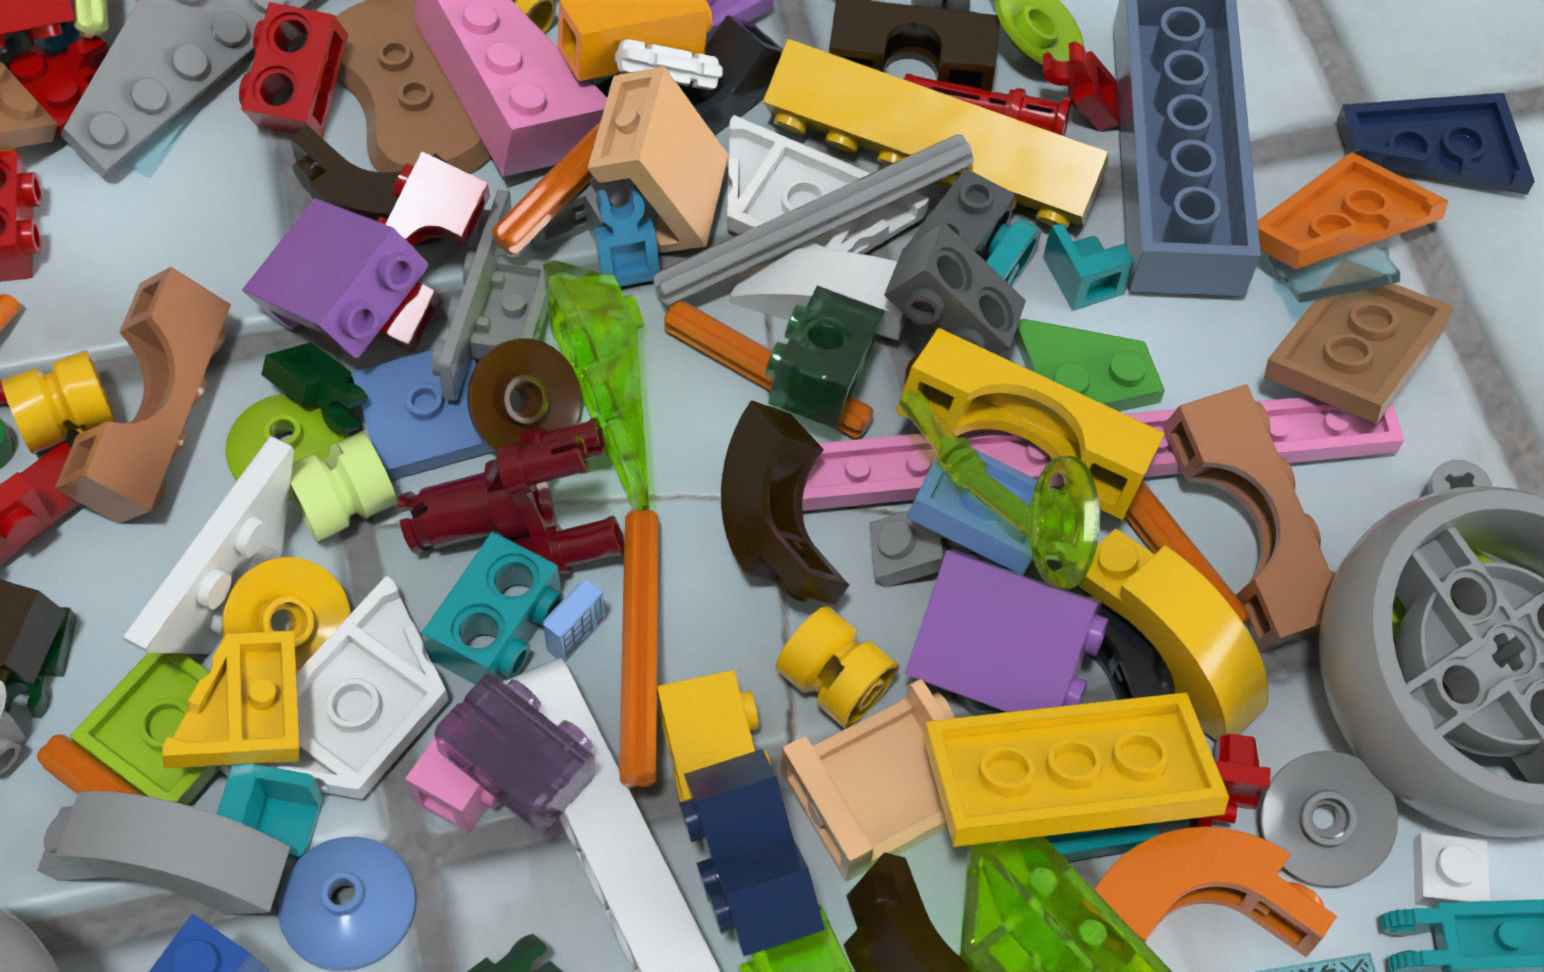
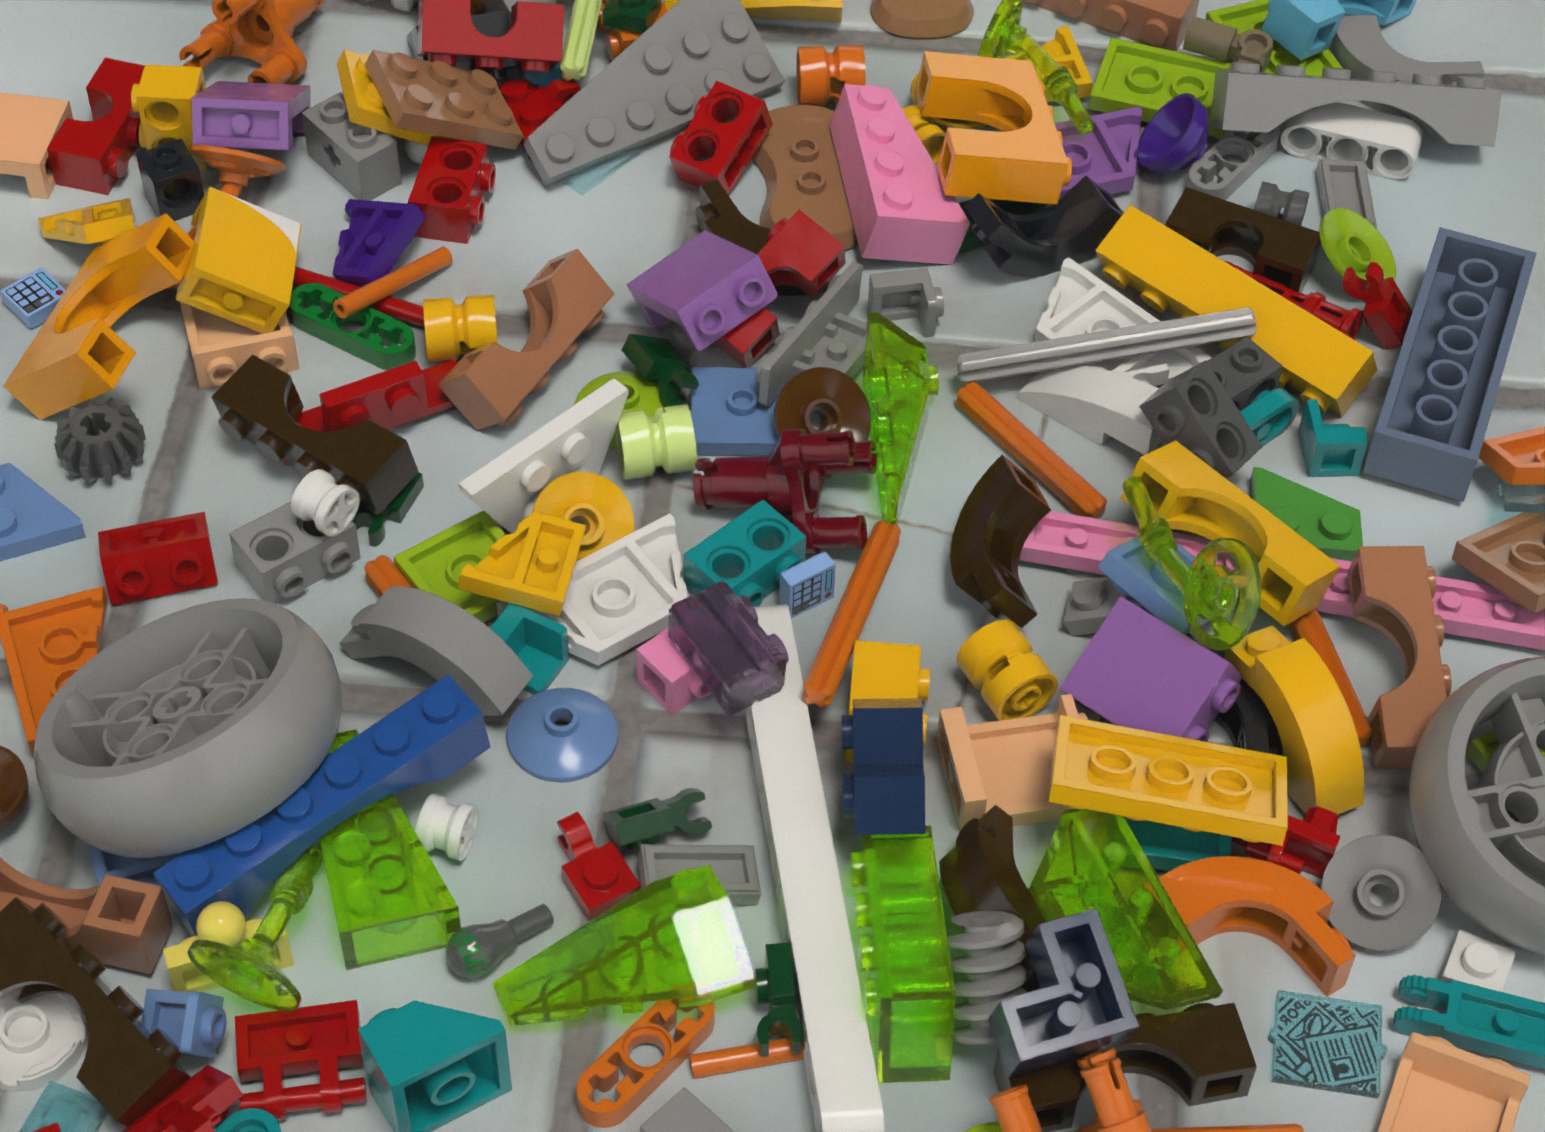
camera: 20 degrees right, 10 degrees down
(546, 197) = (900, 269): orange axle -> none
(627, 243) = (944, 328): dark azure plate -> none
(666, 151) = (998, 264): light nougat panel -> none
(701, 70) = (1022, 199): white axle -> none
(823, 356) = (1077, 445): clear green brick -> none

